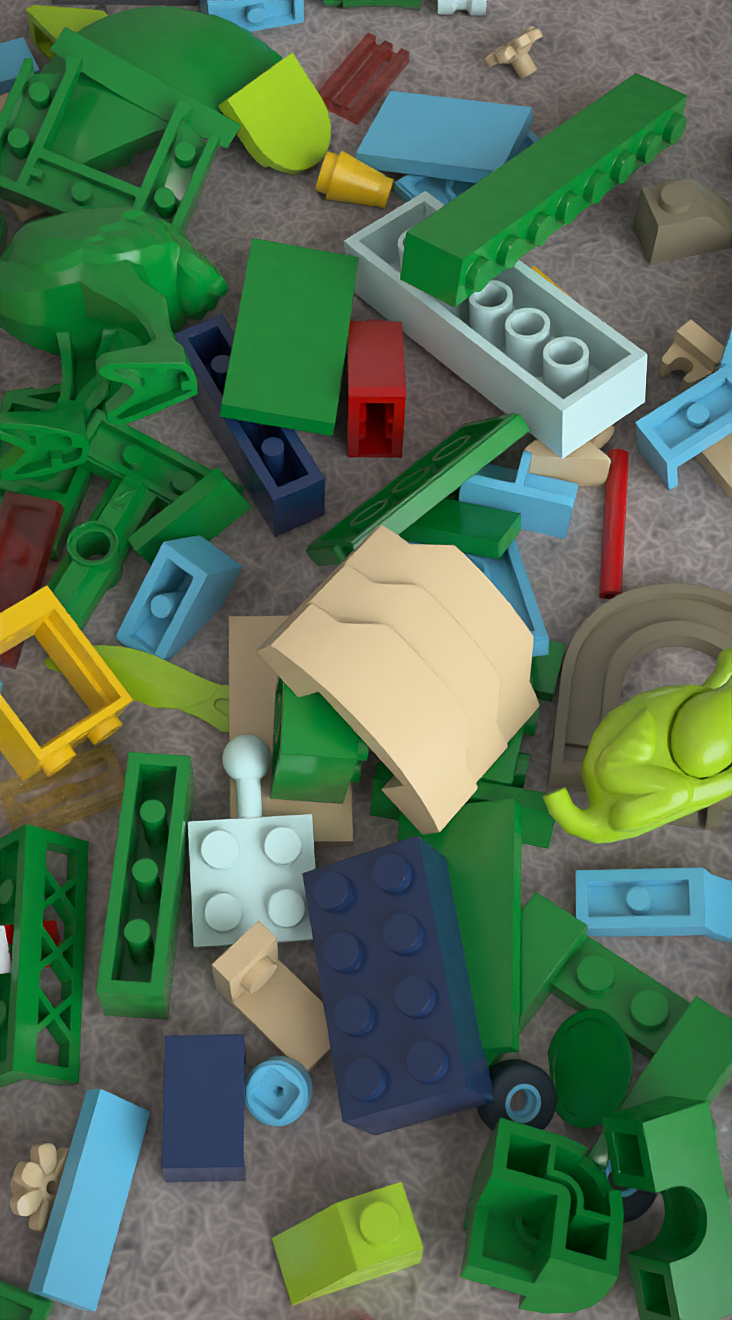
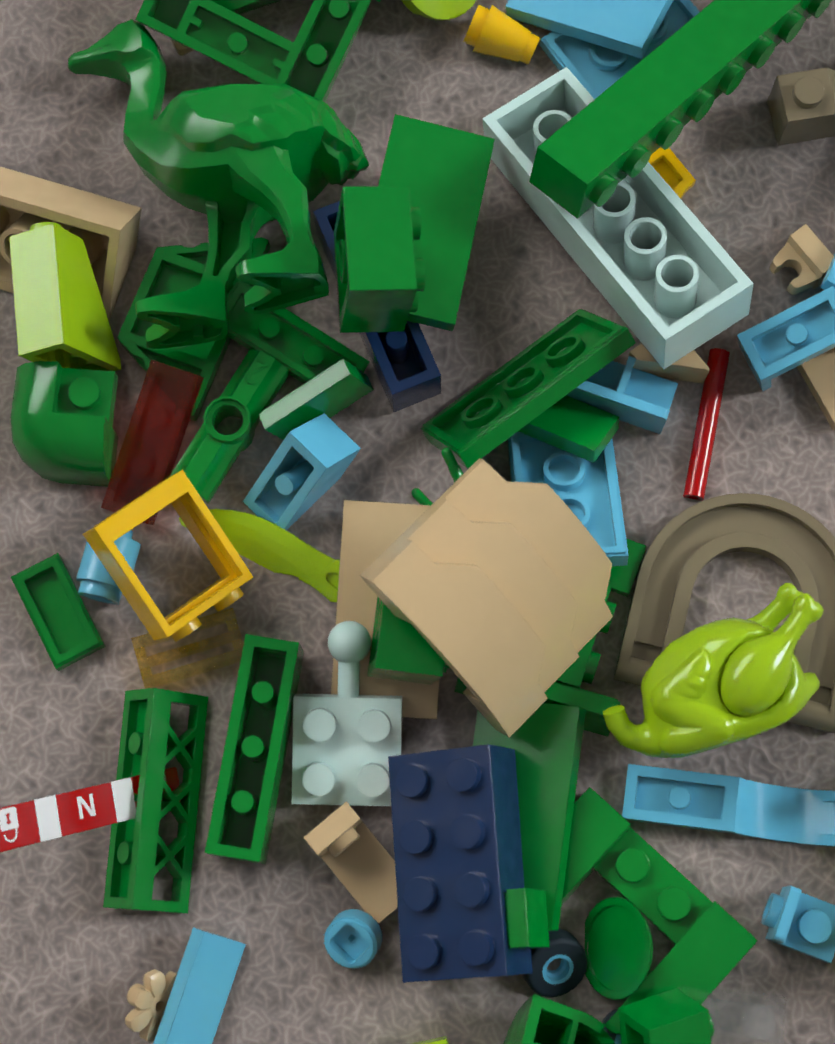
camera: 10 degrees right, 15 degrees up
(203, 1108) = (289, 950): dark blue panel -> none
(247, 349) = (377, 259): none -> green brick
(375, 389) = (499, 268): red slope -> none
(482, 1029) = (527, 918): none -> green tile

